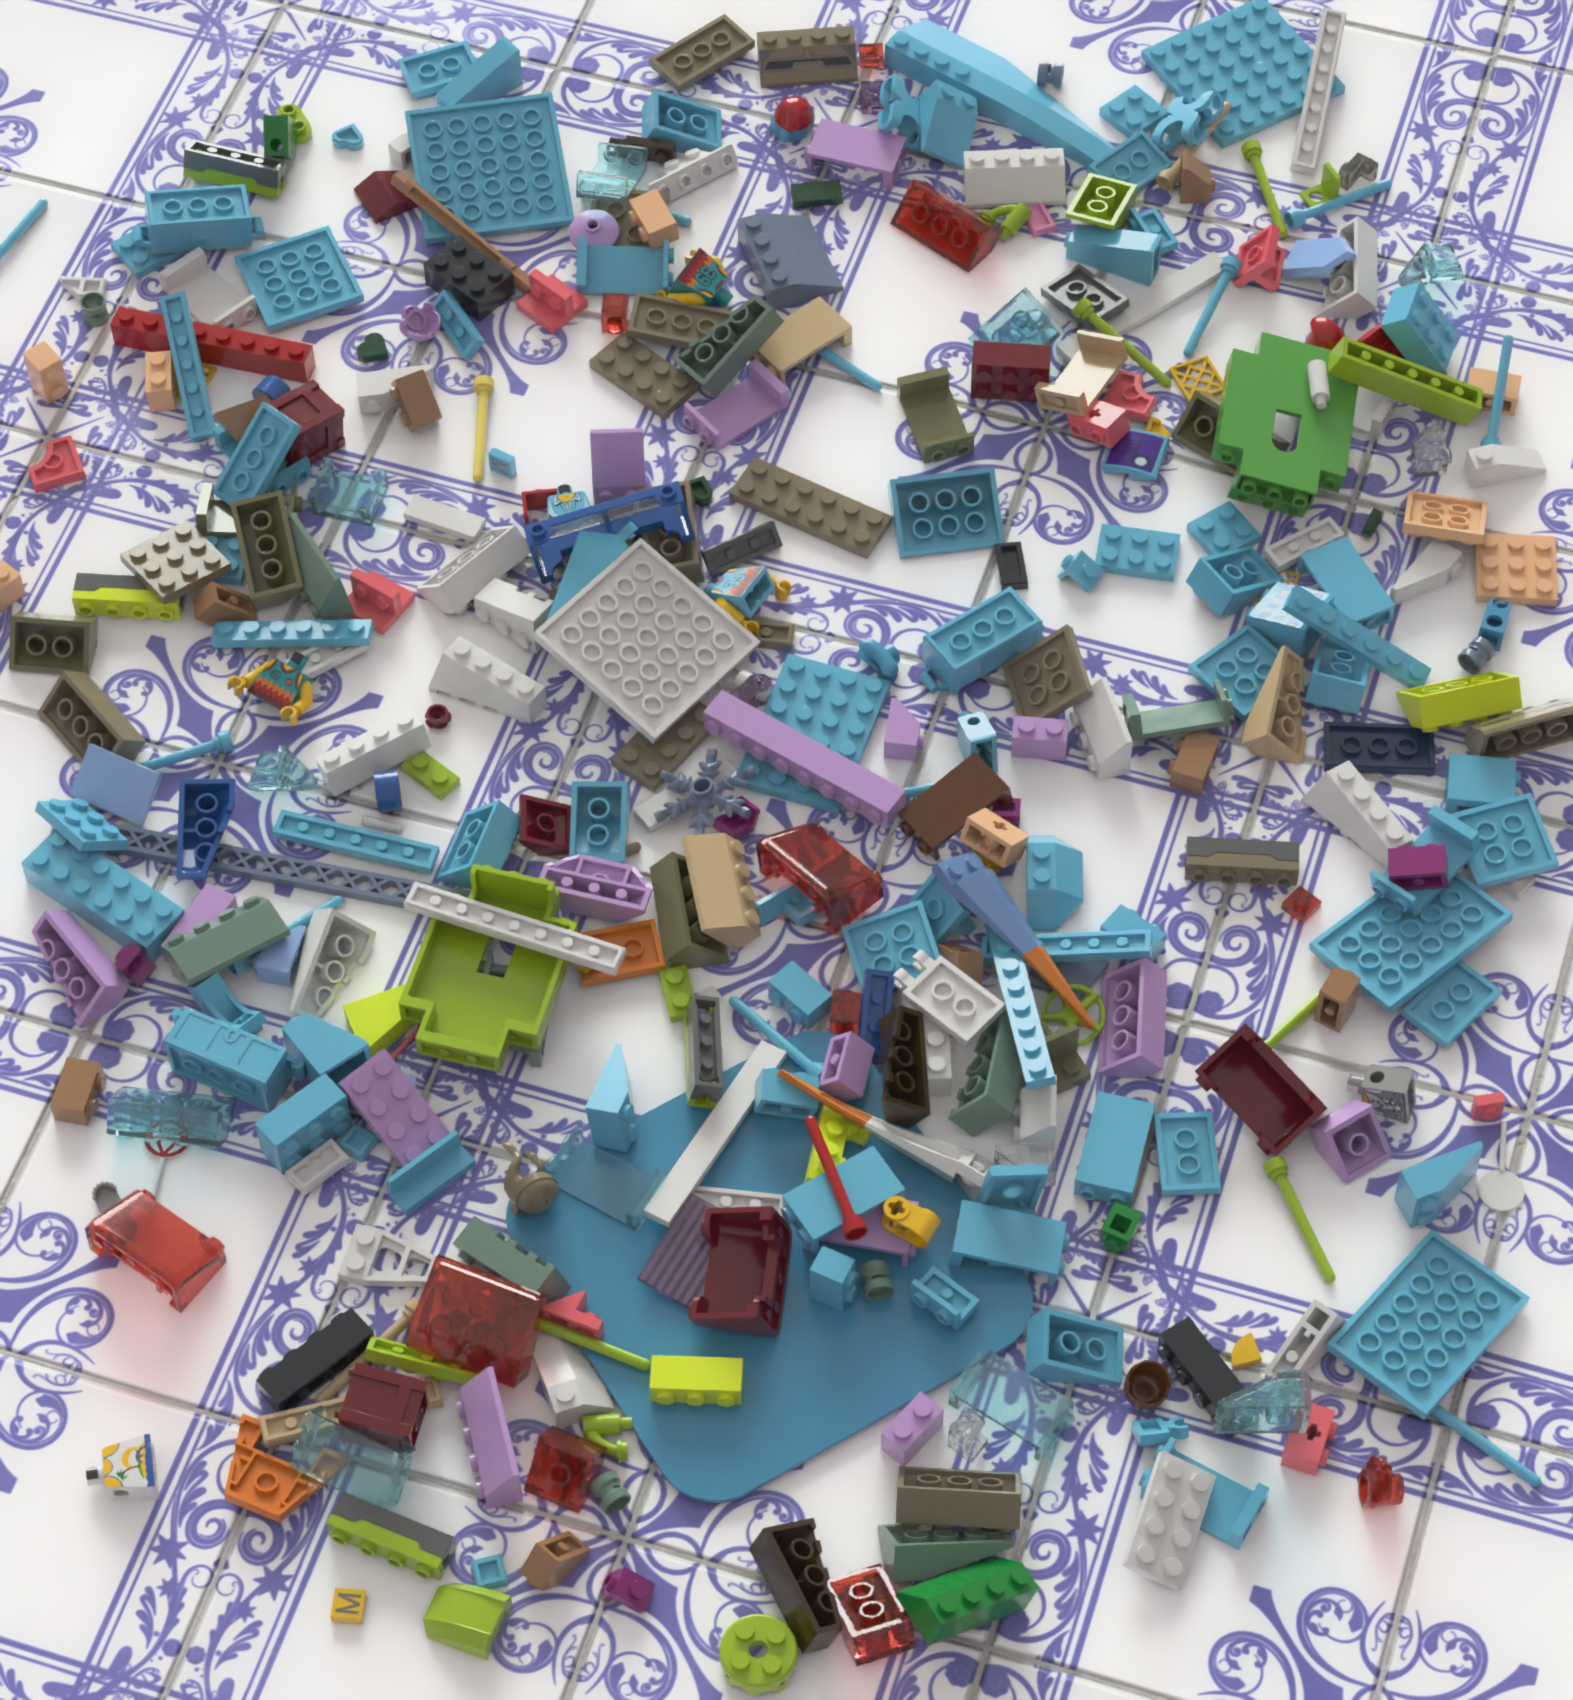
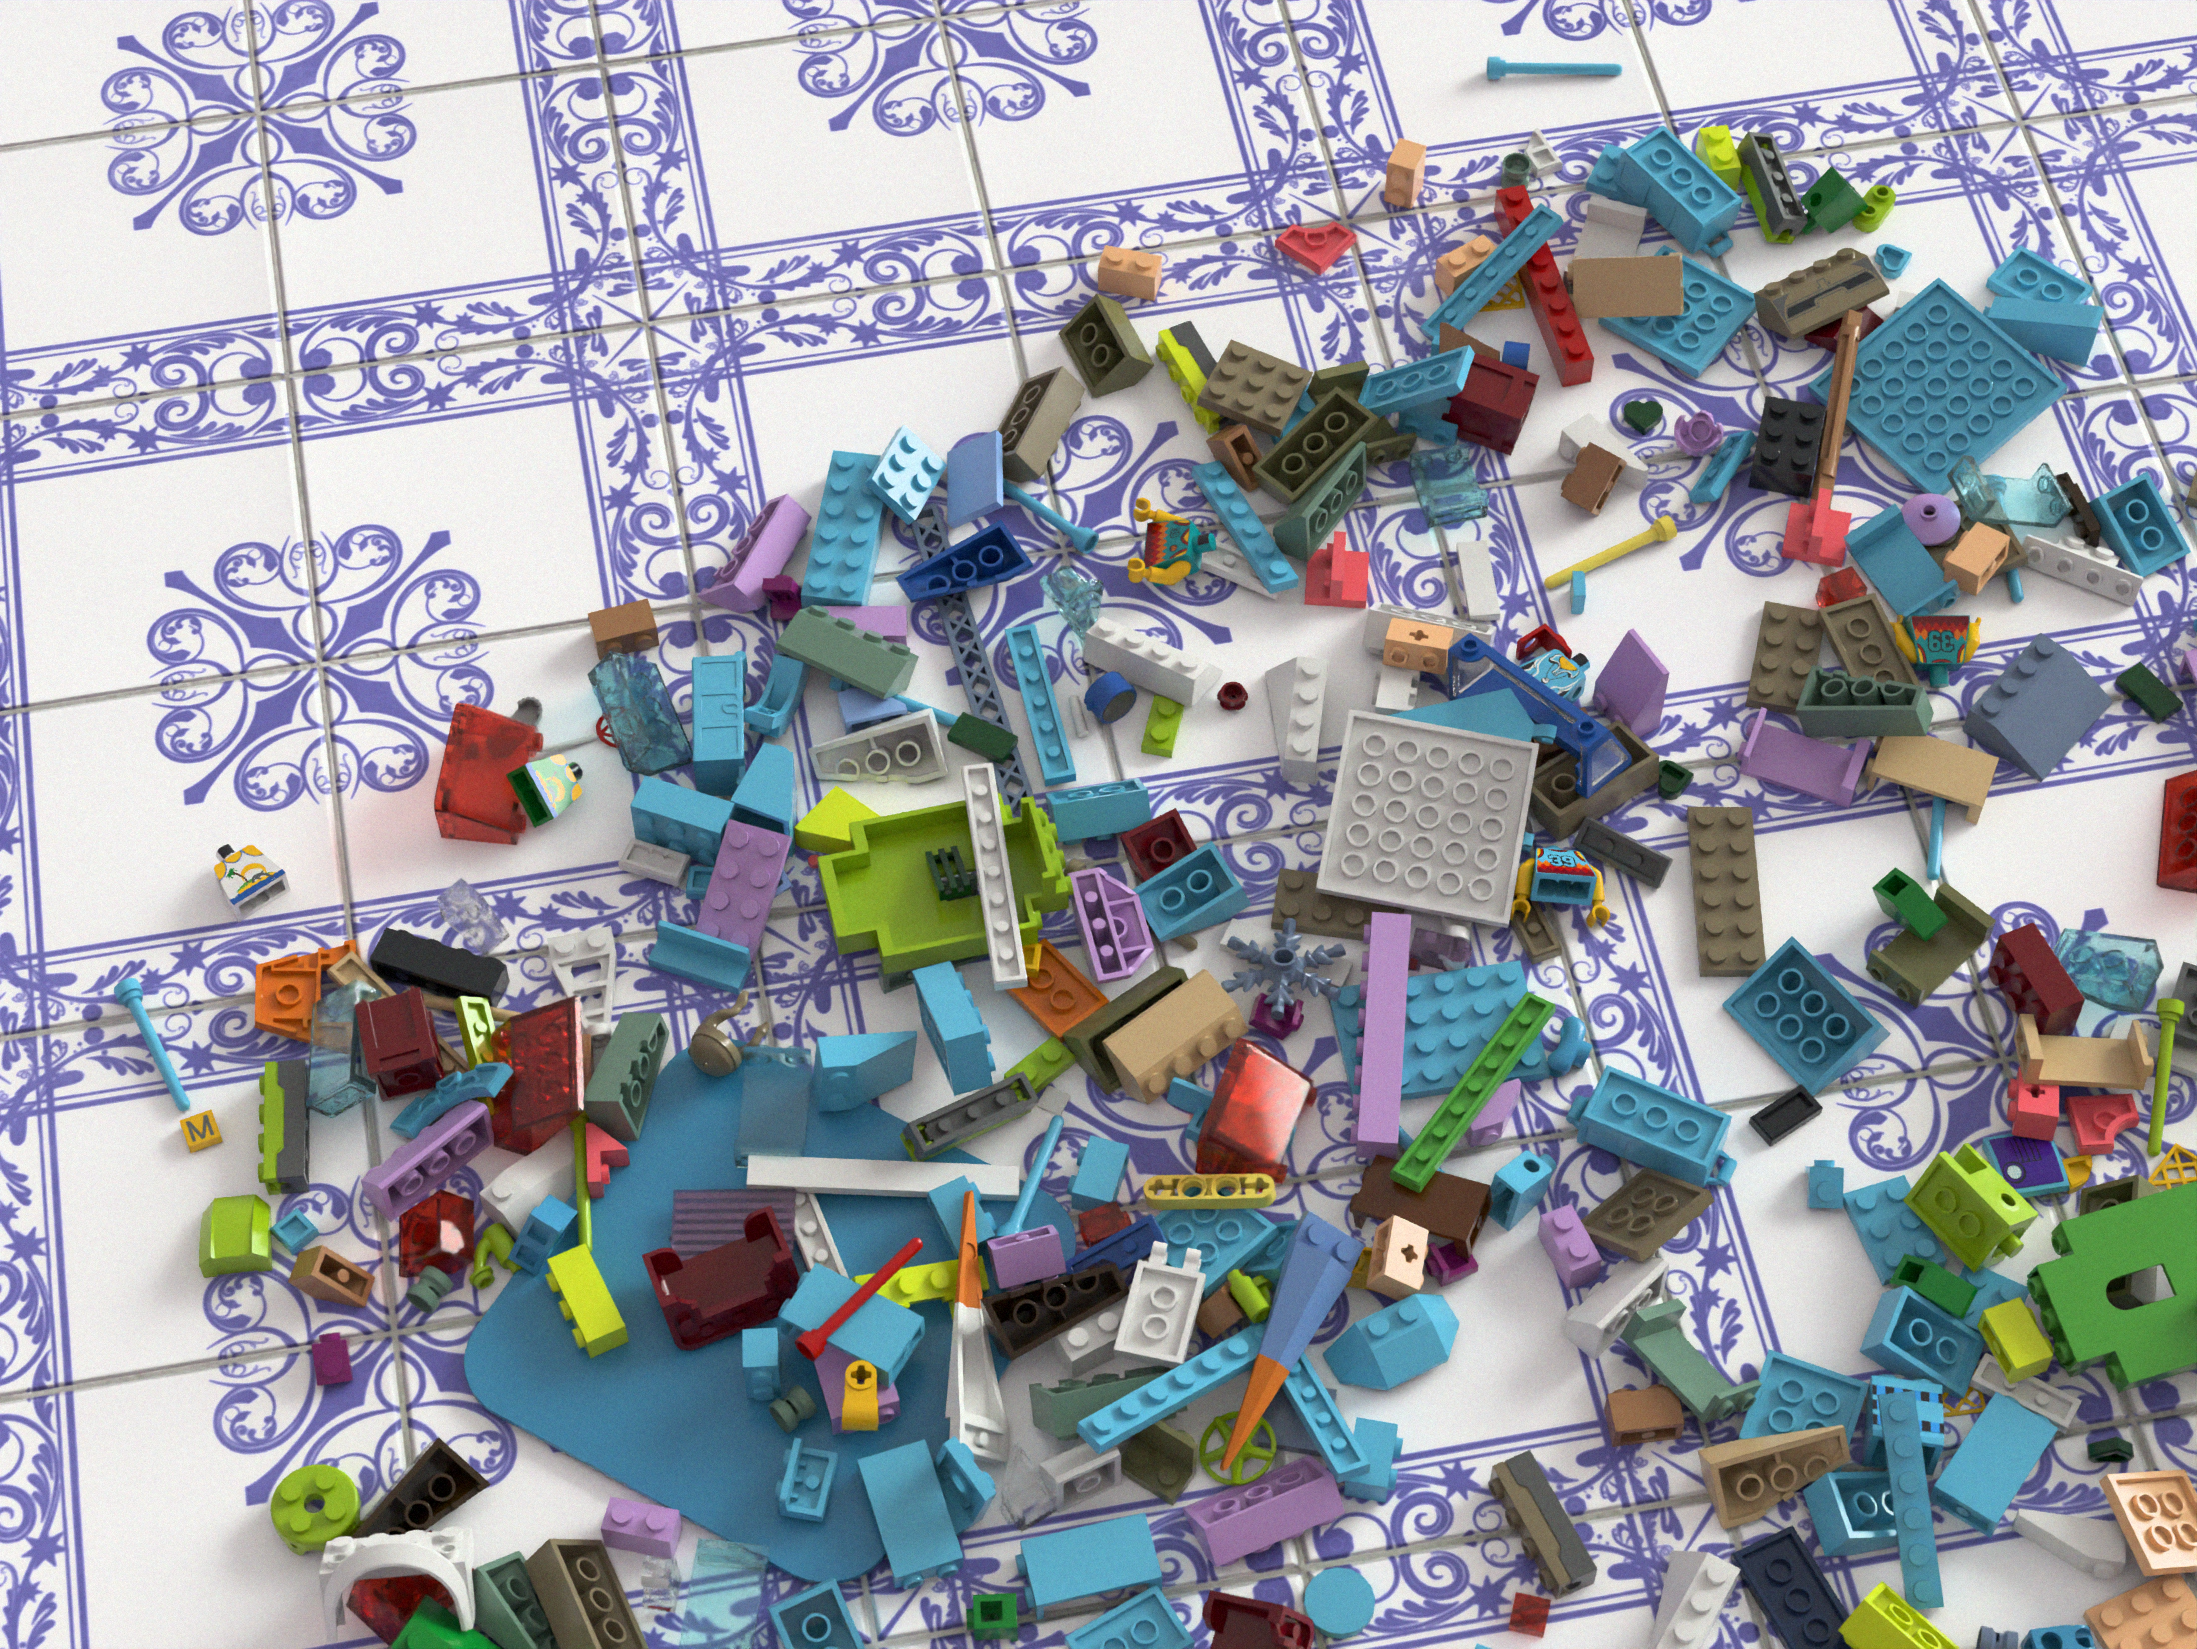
camera: 60 degrees right, 0 degrees up
(178, 177) = (1719, 154): none -> neon yellow brick
(181, 1607) = (130, 995): none -> medium azure piece
(203, 1207) = (546, 787): none -> green torso
(266, 290) = (1627, 286): none -> tan panel
(282, 1318) = (472, 917): none -> clear slope
(355, 189) = (1819, 293): none -> dark tan slope
(363, 891) = (982, 738): none -> dark green tile
(445, 1395) = (455, 1088): none -> medium azure tile
(487, 956) = (944, 859): none -> dark green tile
(493, 573) = (1417, 646): none -> light nougat brick
(622, 1382) = (542, 1233): none -> dark azure tile
(627, 1017) = (954, 1027): none -> medium azure brick
(853, 1615) = (442, 1554): none -> white piece
(865, 929) = (1209, 1195): none -> light yellow beam
(887, 728) = (1472, 1092): none -> bright green tile
(901, 407) = (1909, 904): none -> green slope
(971, 939) = (1252, 1294): none -> lime plant
(1160, 494) = (1971, 1208): none -> lime torso
(1202, 544) = (1935, 1285): none -> green slope
(1227, 1010) = (1339, 1602): none -> medium azure tile
(1270, 524) = (2015, 1340): none -> neon yellow brick

